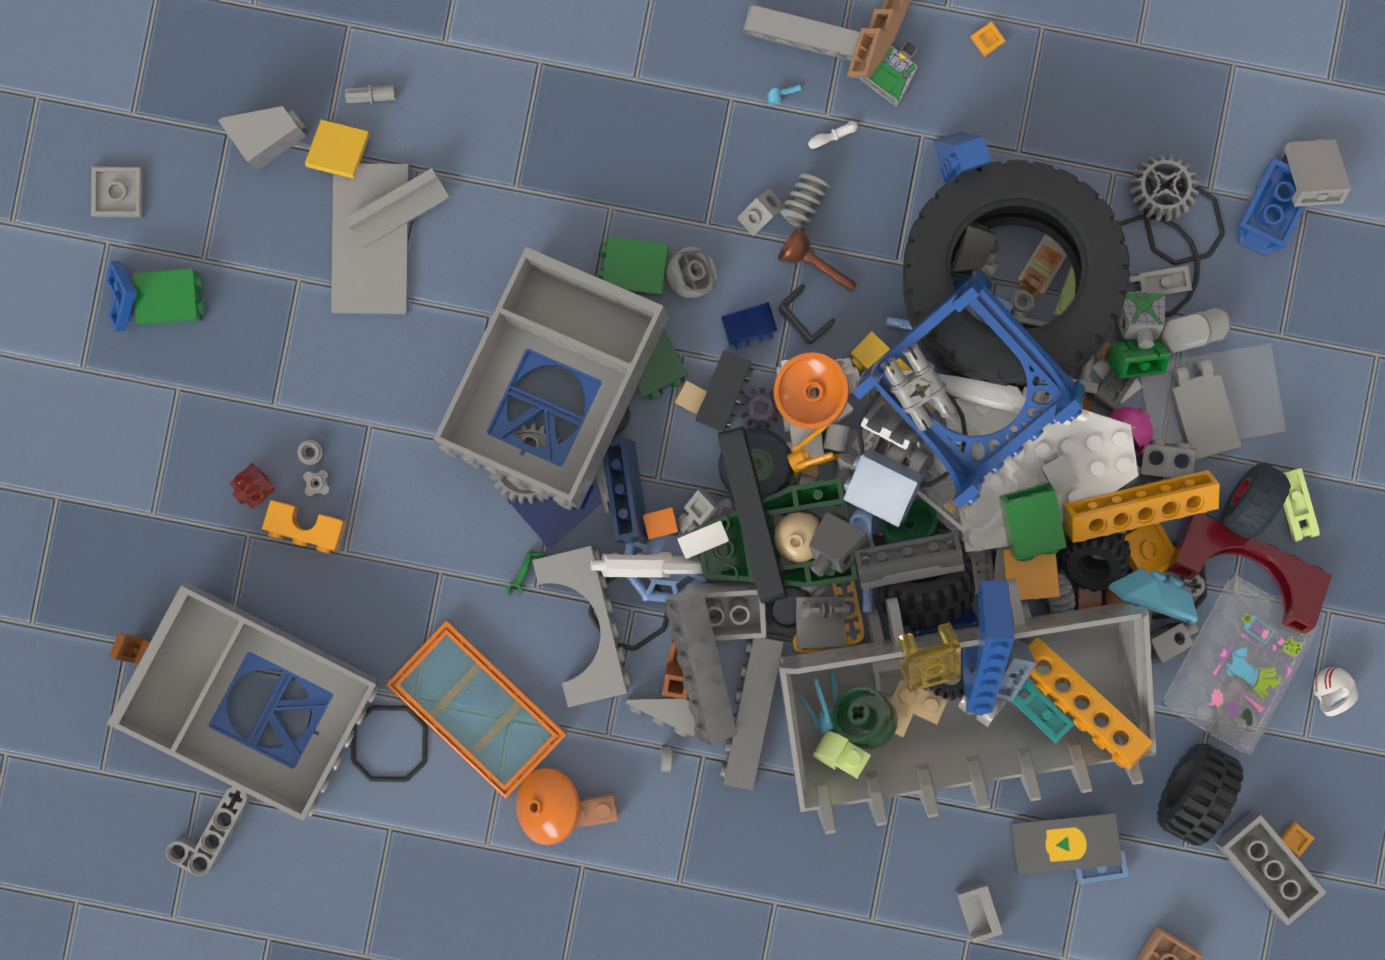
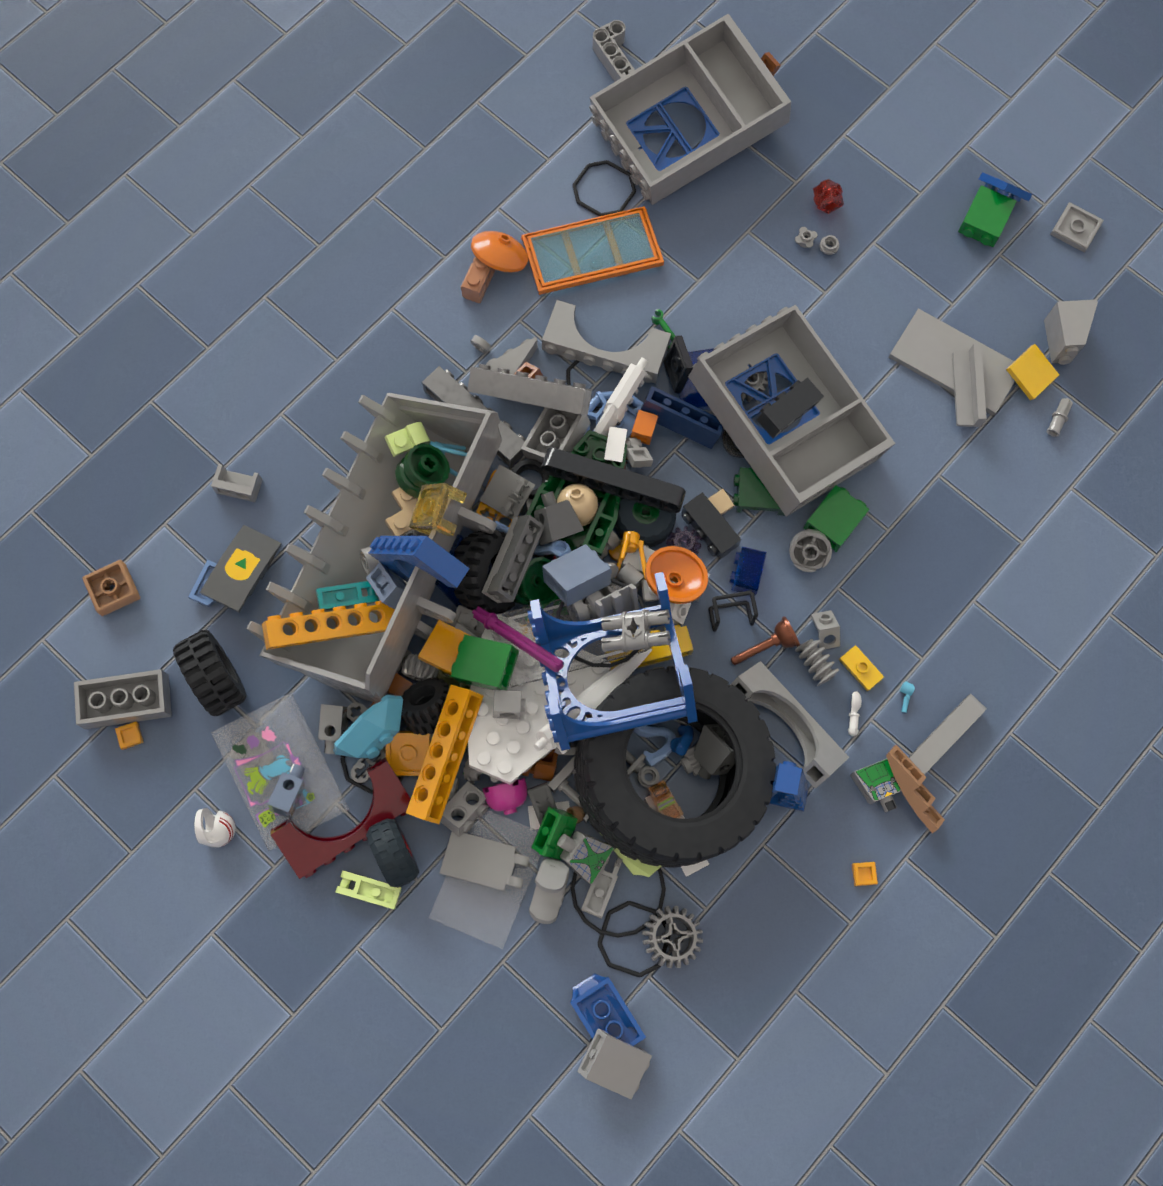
camera: 120 degrees right, 15 degrees down
(282, 520) = (792, 202): light orange arch -> none
(565, 375) = (789, 407): none -> black brick
(566, 530) = (678, 364): none -> black tile
(780, 154) = (861, 668): none -> yellow plate
(896, 145) = (820, 750): none -> light grey arch
(984, 542) = (491, 621): none -> magenta axle
(1272, 638) = (285, 801): none -> sand blue torso

